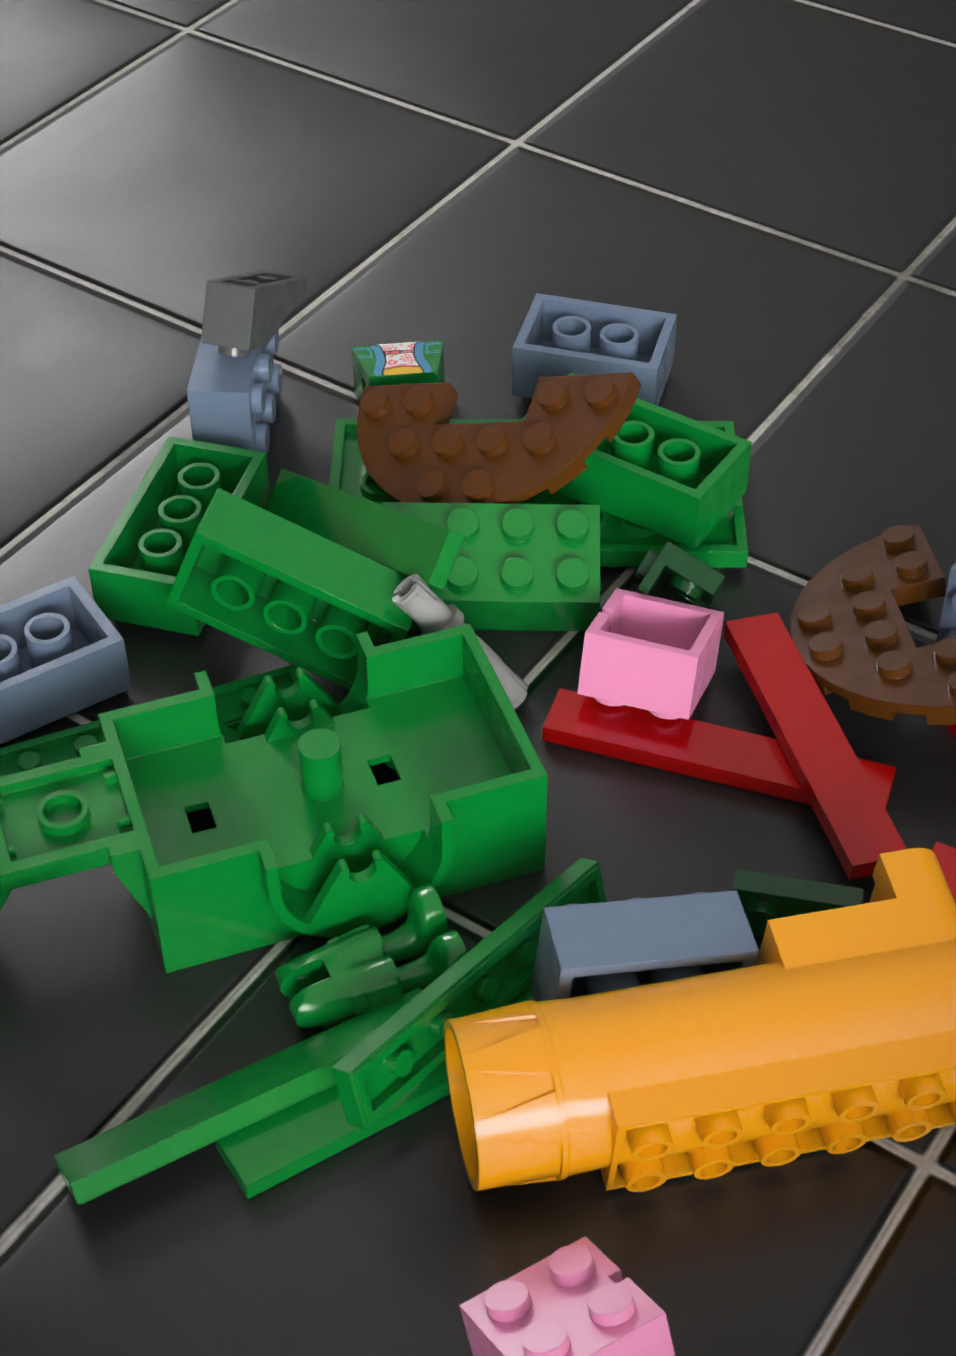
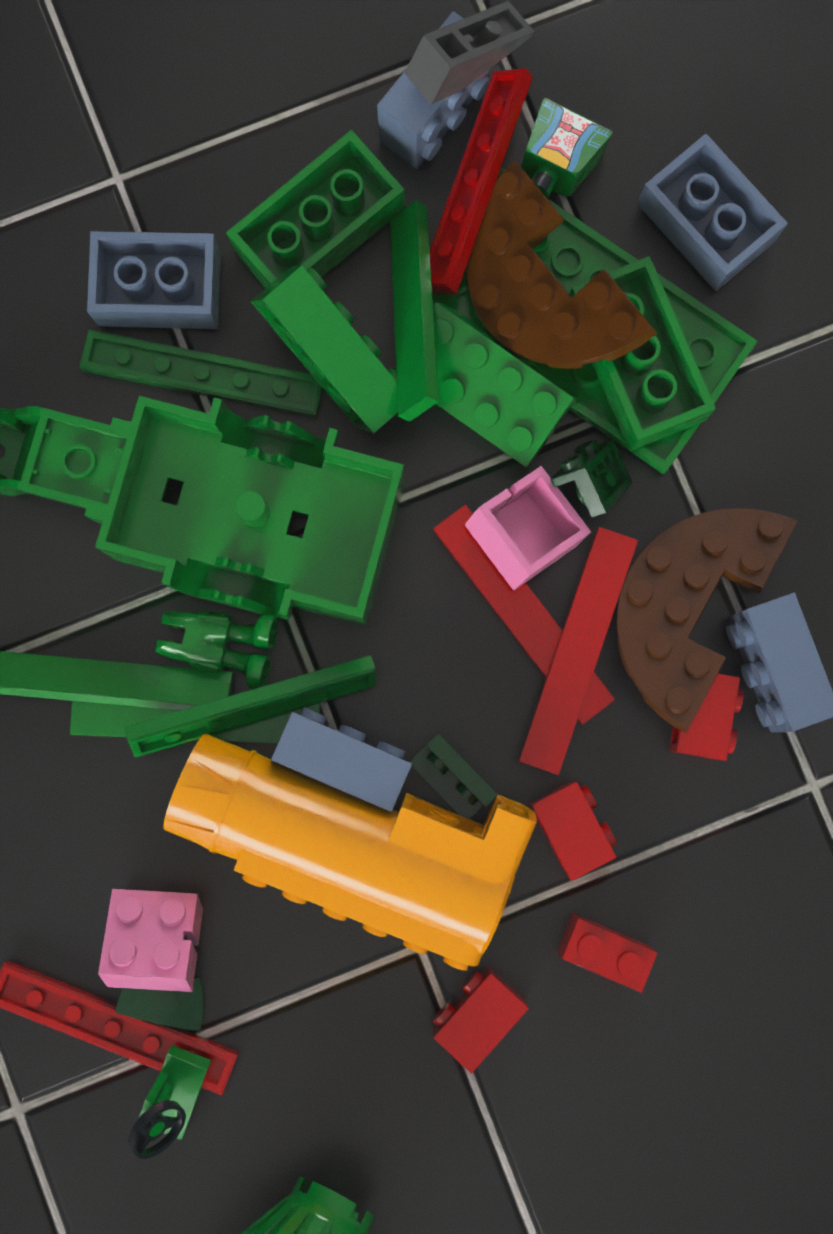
camera: 35 degrees right, 40 degrees up
(332, 420) = (476, 178): none -> red tile
(434, 615) = (402, 441): light grey pin -> none

